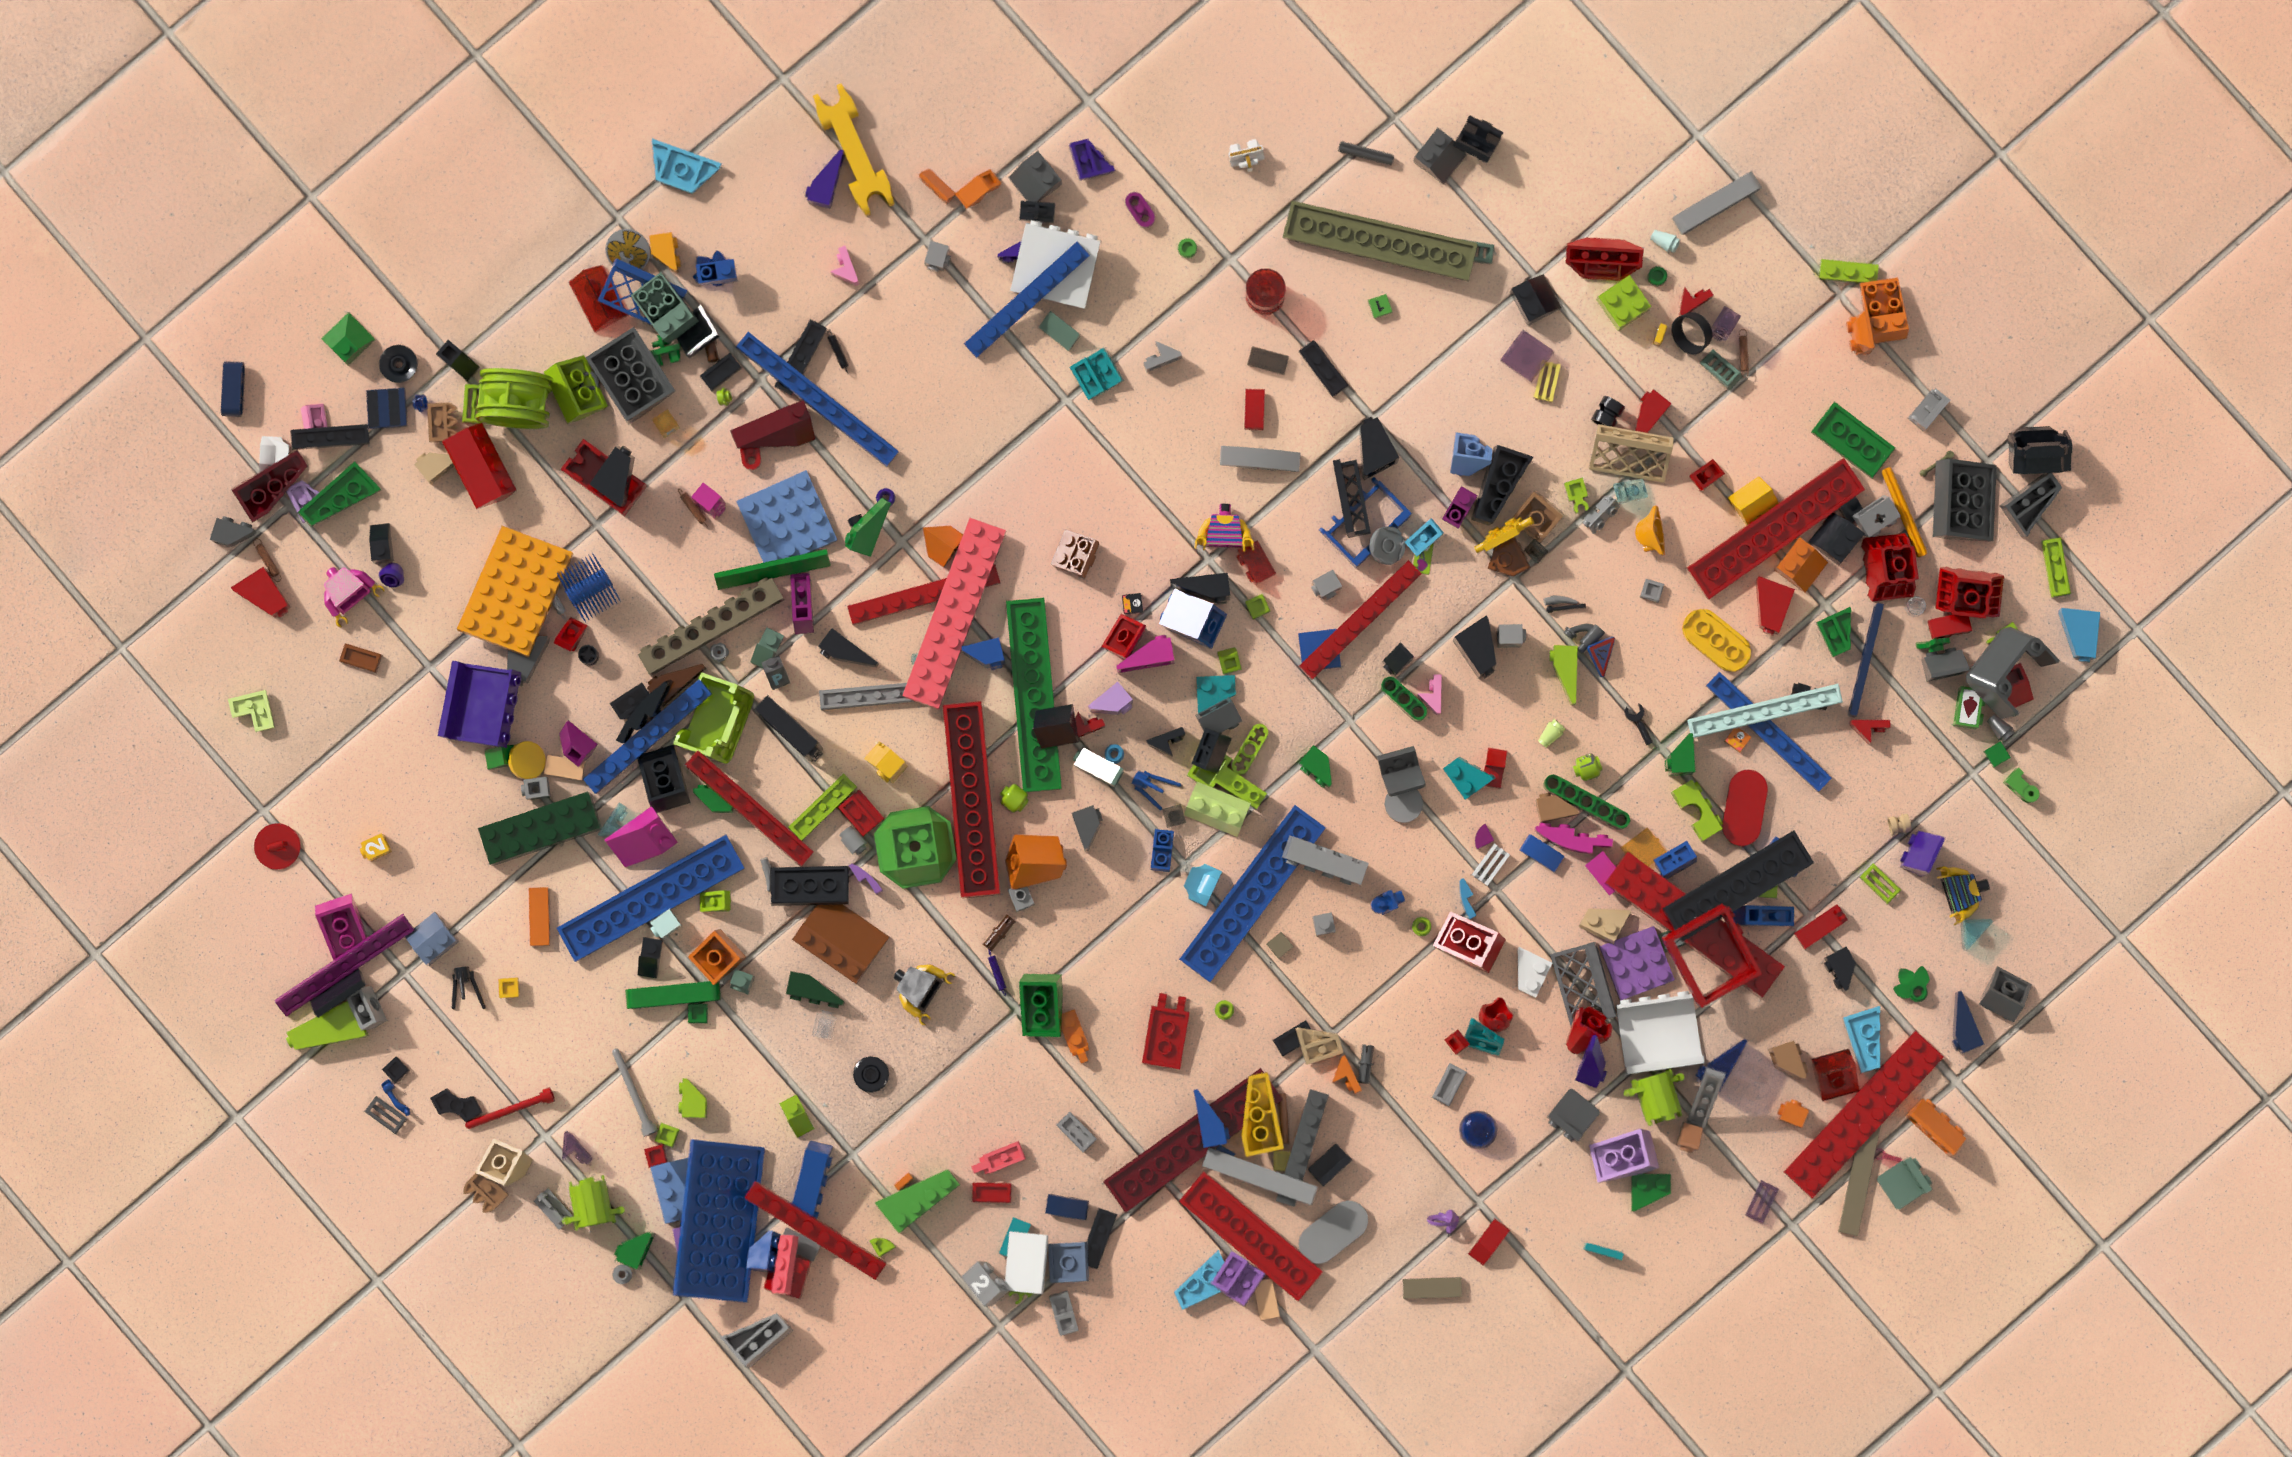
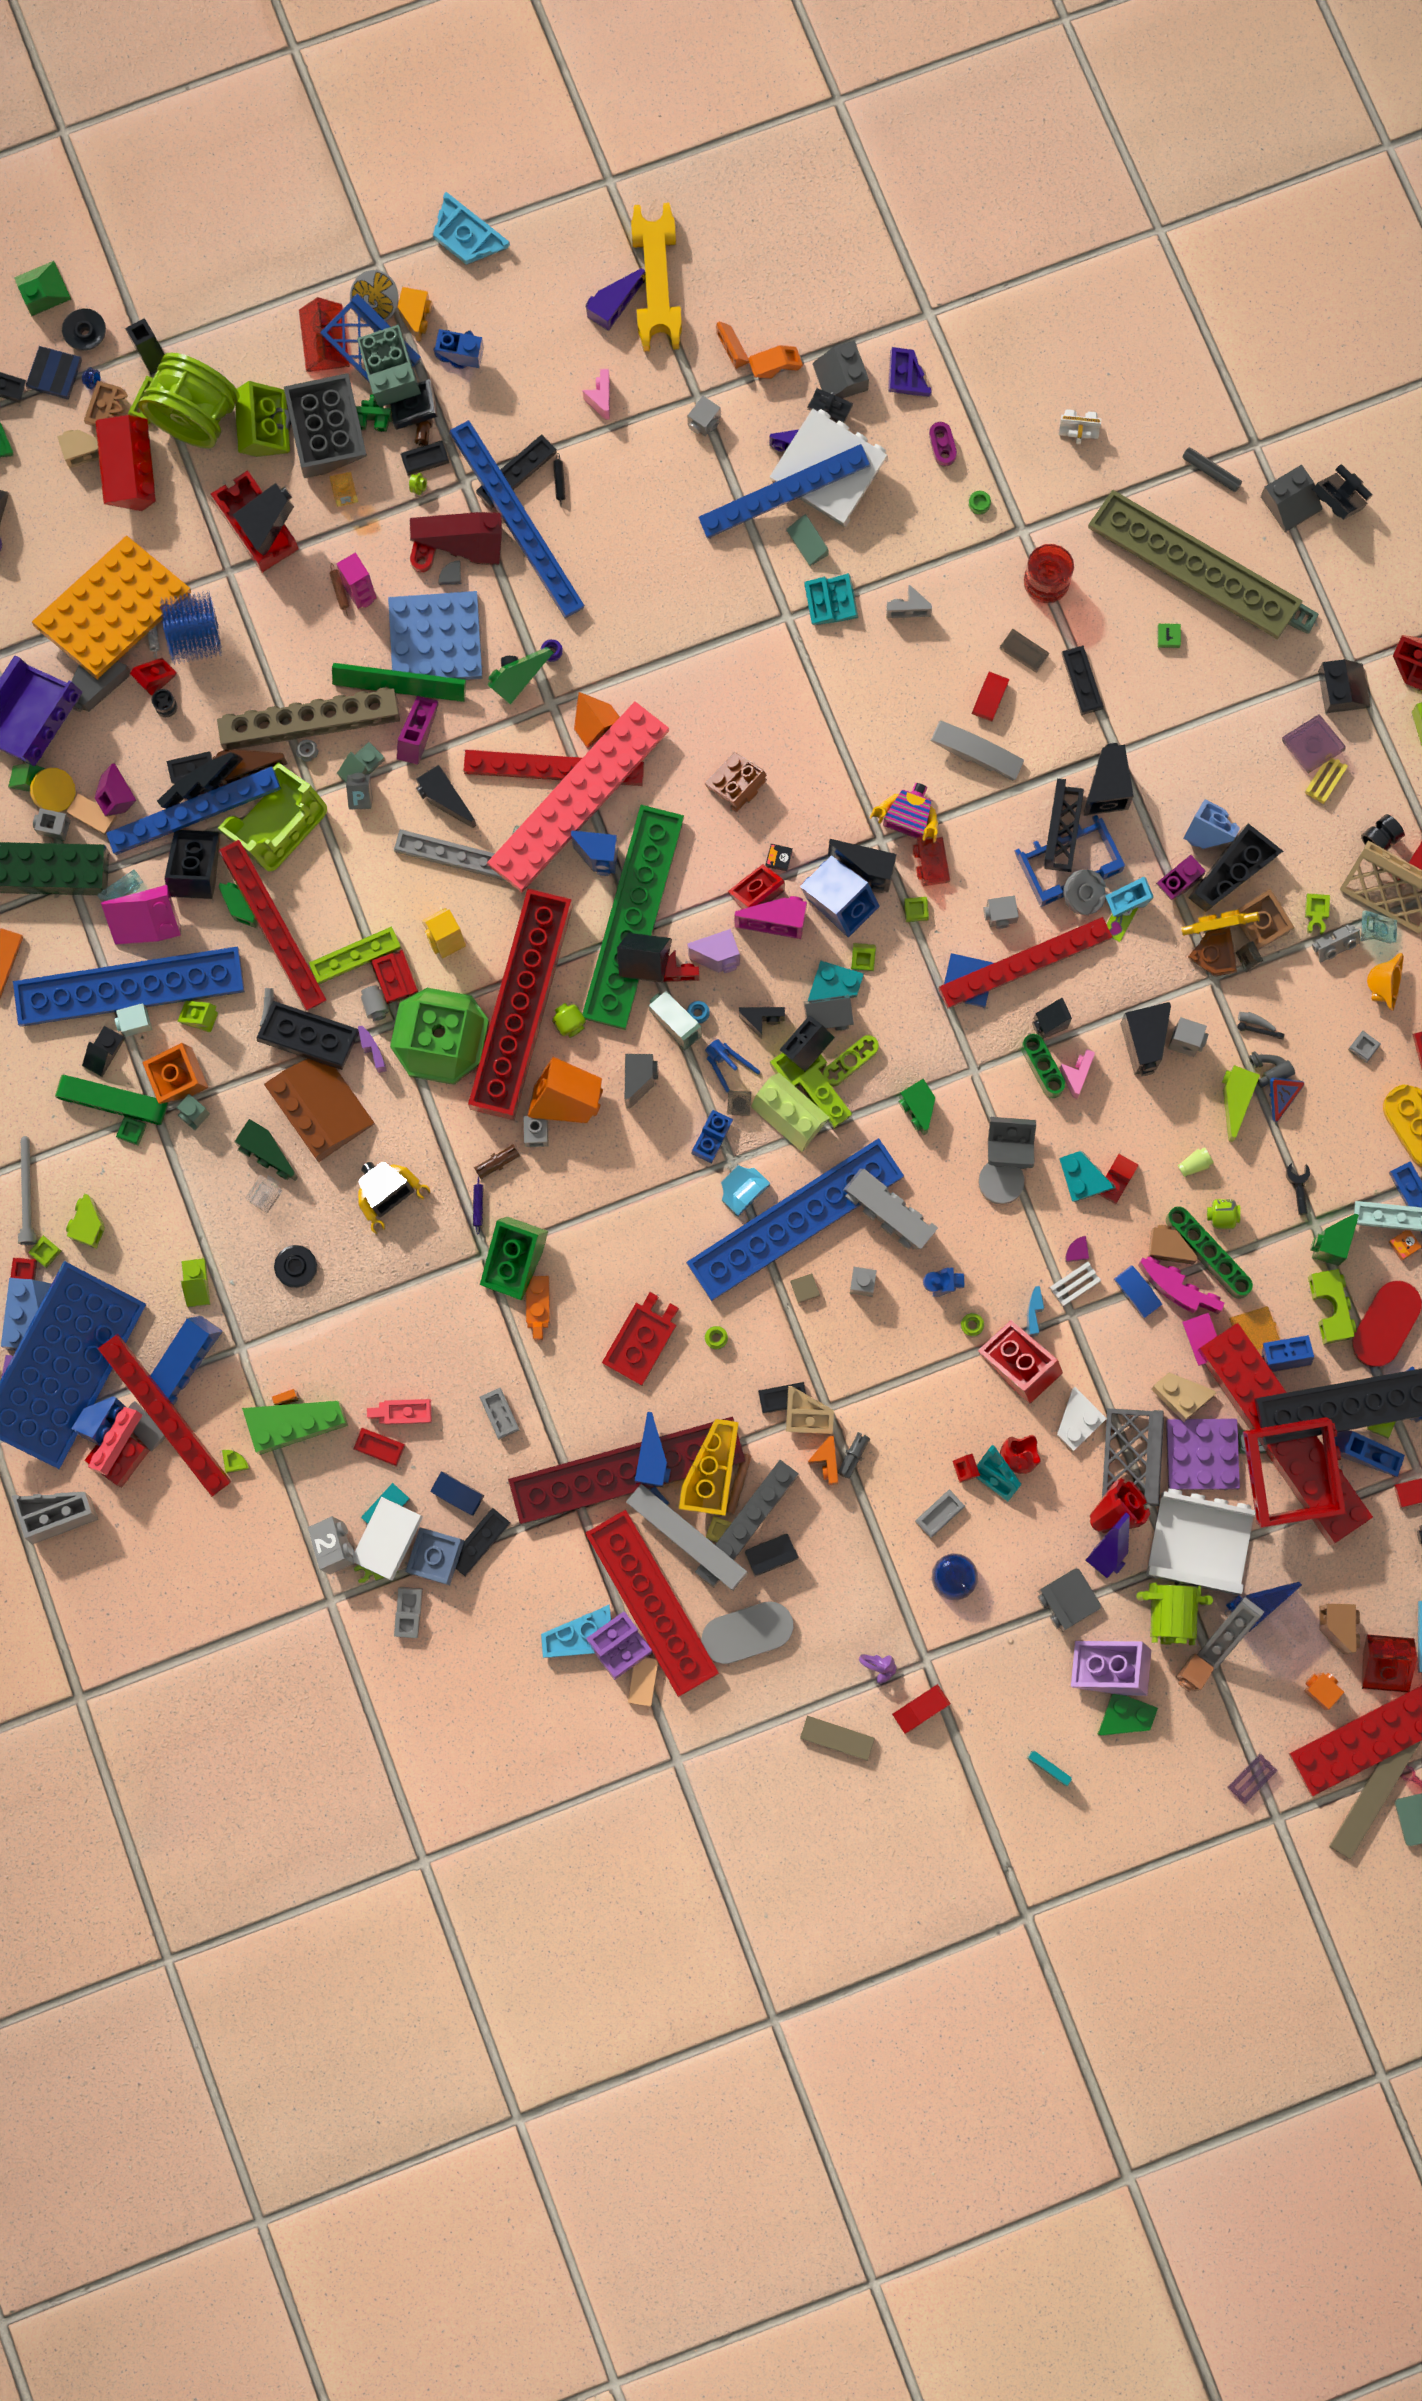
camera: 20 degrees right, 5 degrees down
(779, 462) = (451, 574): none -> dark grey tile
(789, 729) = (348, 852): black window -> none

